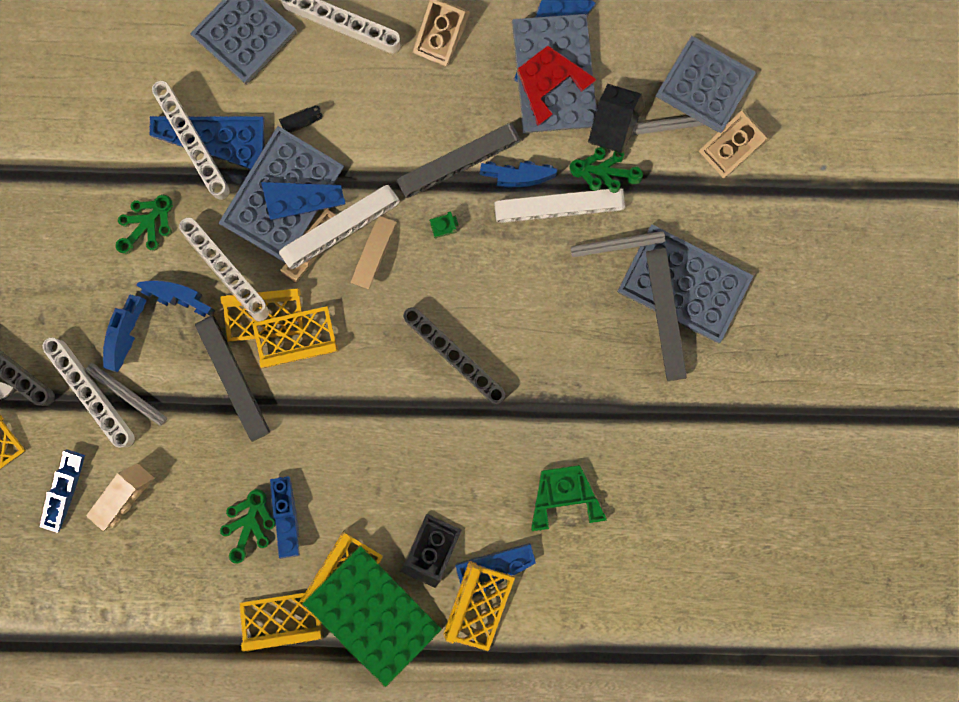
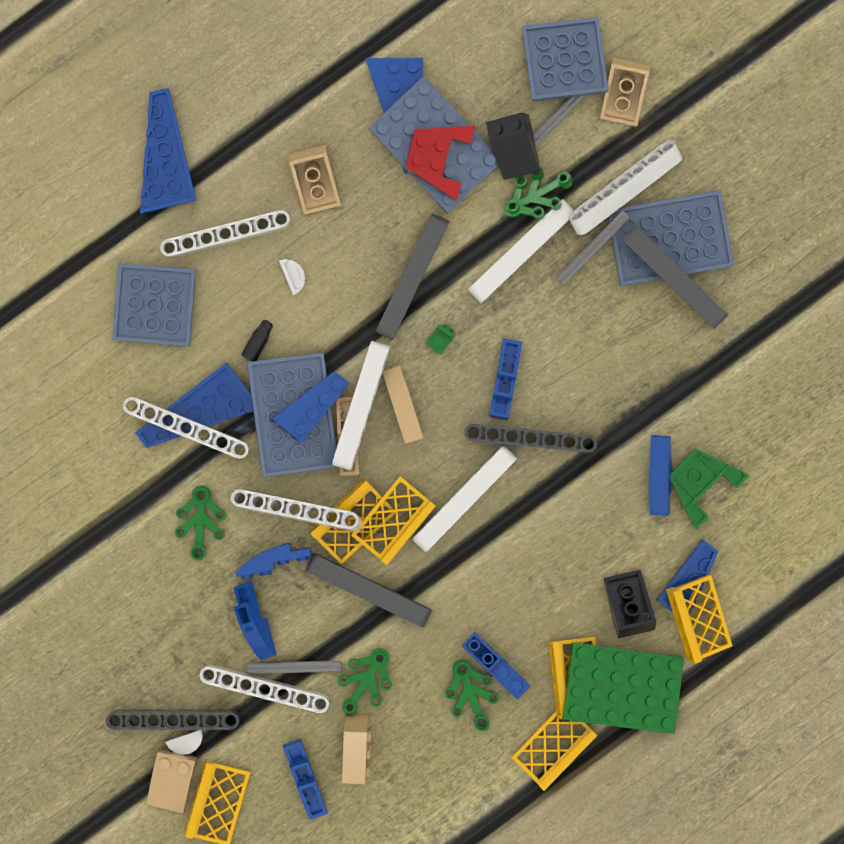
camera: 35 degrees left, 5 degrees up
(176, 447) = (367, 678): none -> green plant
(364, 363) = (464, 498): none -> white beam
(369, 92) = (294, 275): none -> white tile
(470, 295) = (505, 379): none -> blue slope
(527, 175) = (475, 247): blue slope -> none
(534, 464) = (660, 475): none -> blue slope
(679, 216) = (625, 187): none -> white beam

